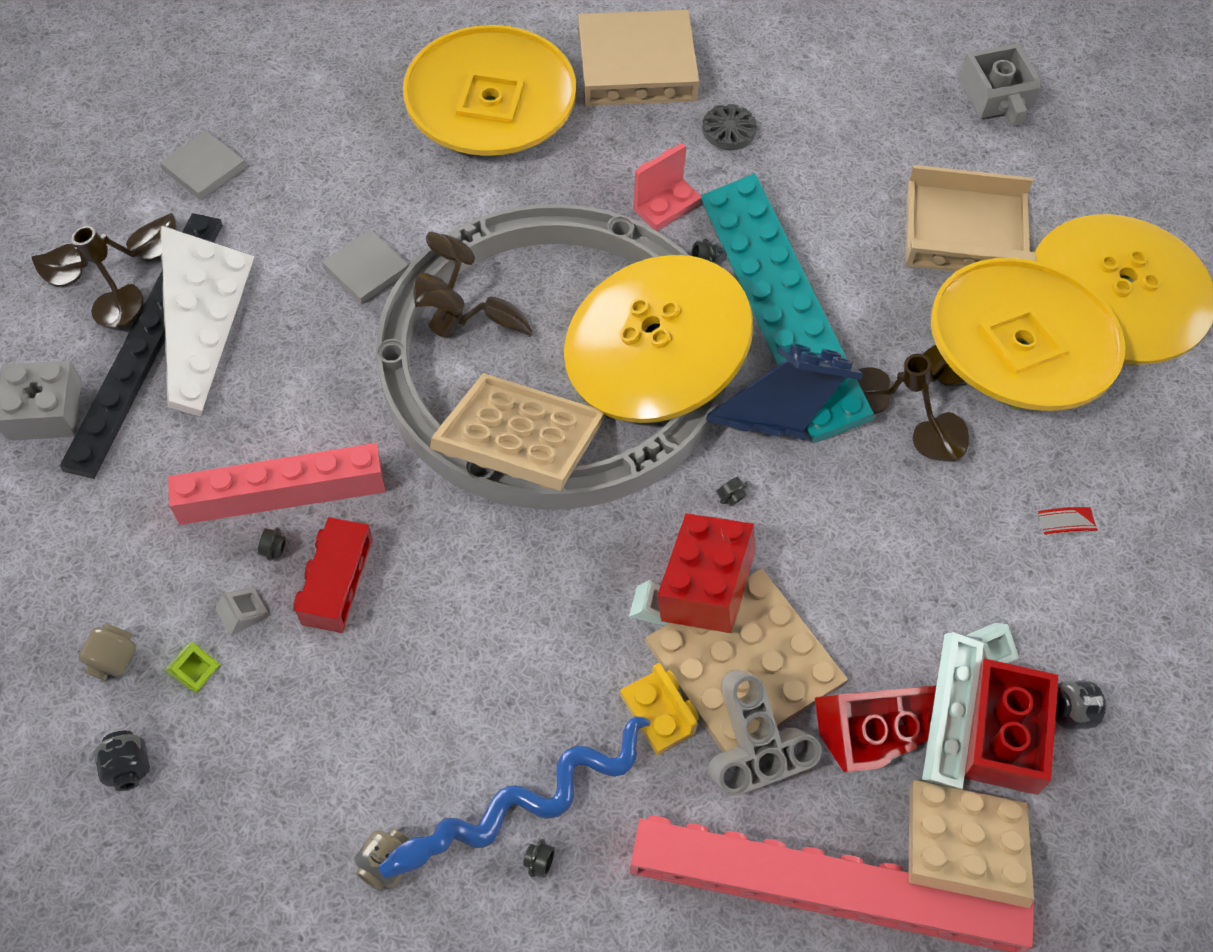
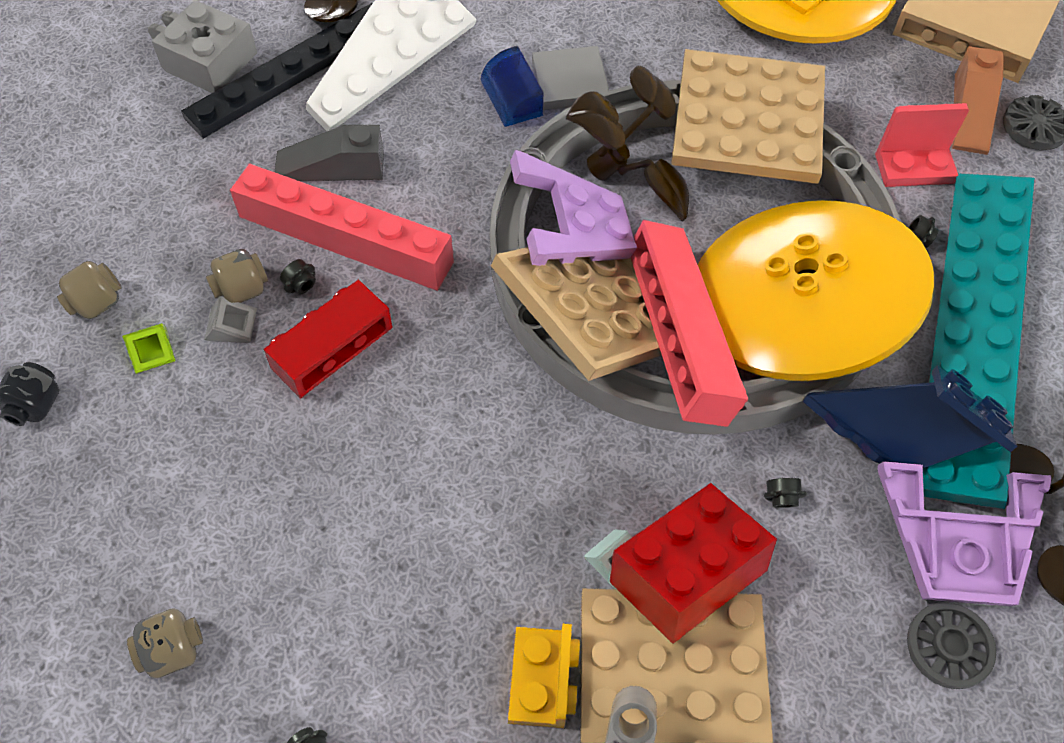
camera: 35 degrees right, 0 degrees up
(224, 432) = (335, 155): none -> dark grey slope
(224, 570) = (237, 276): none -> dark tan head
(328, 299) = (512, 87): none -> clear blue brick
(418, 850) = (187, 656): blue animal -> none
(463, 368) = (588, 216): none -> lavender wing
(531, 229) = (750, 116): none -> tan plate
(592, 411) = (686, 326): none -> coral brick
(676, 125) = (979, 86): none -> nougat slope
(868, 463) = (961, 553): none -> lavender wing
(894, 527) = (951, 645): none -> dark grey wheel

